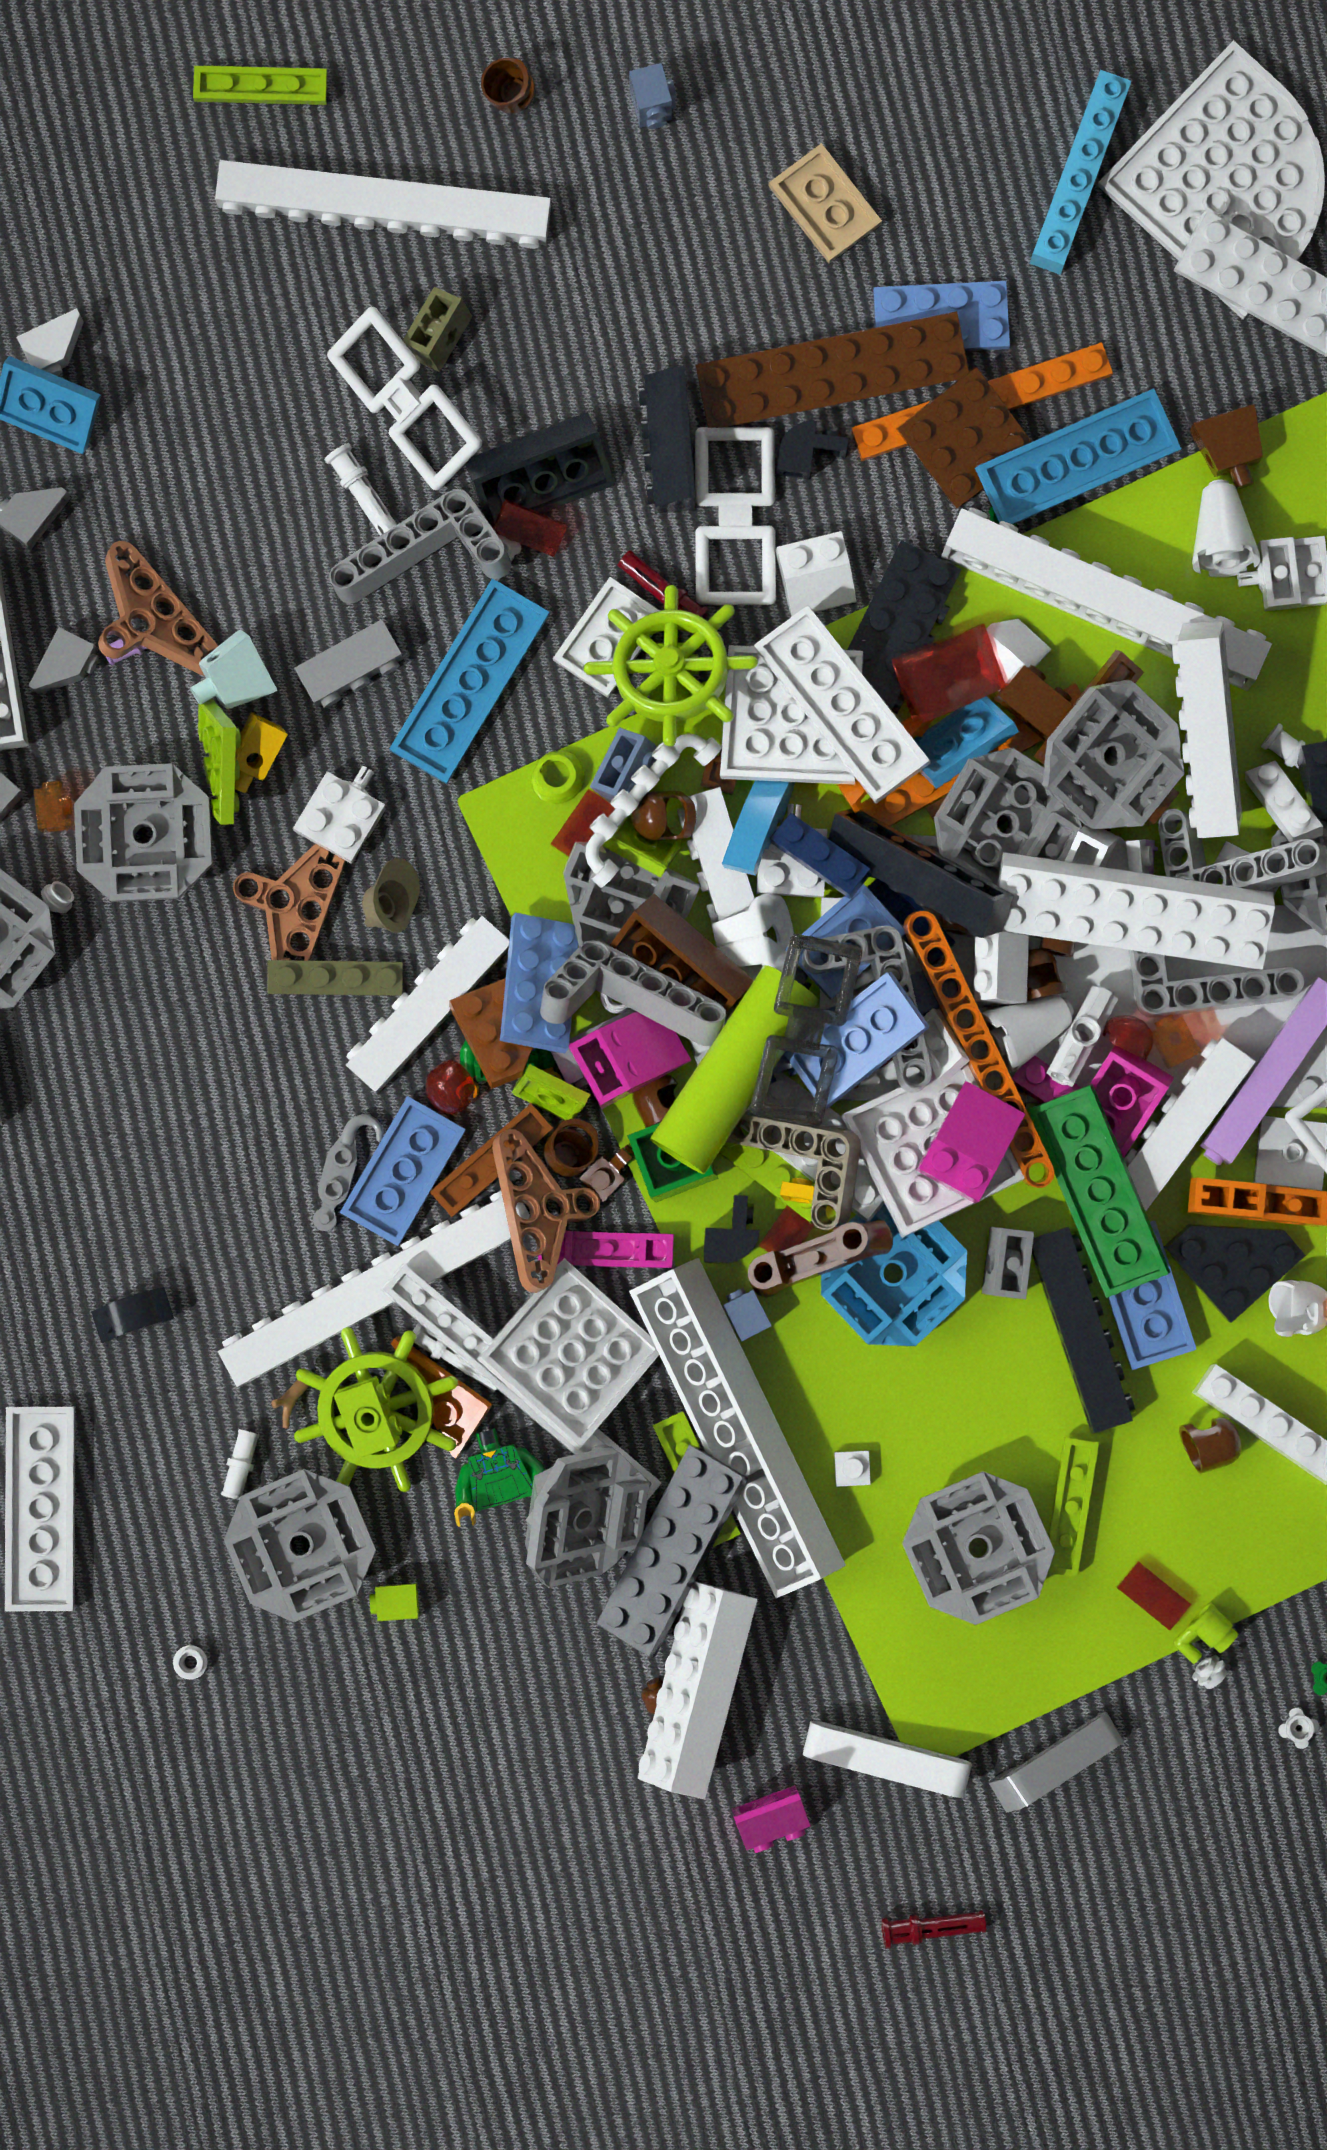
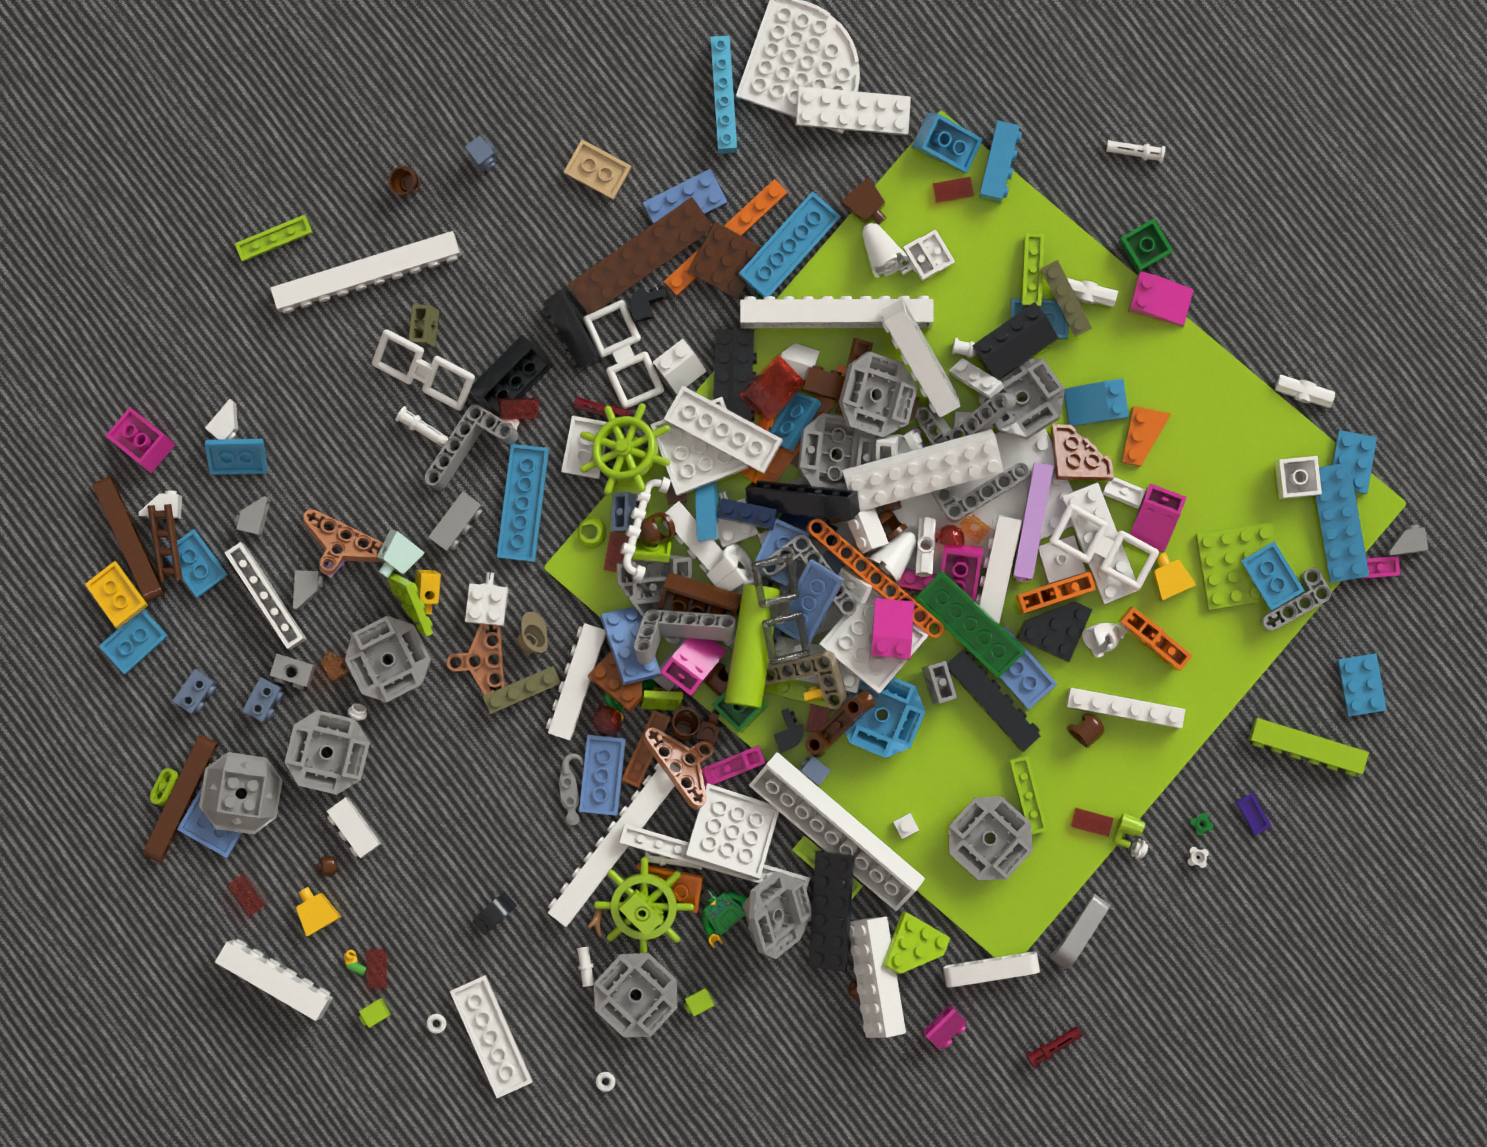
camera: 15 degrees left, 0 degrees up
(780, 1663) = (913, 944): none -> lime plate

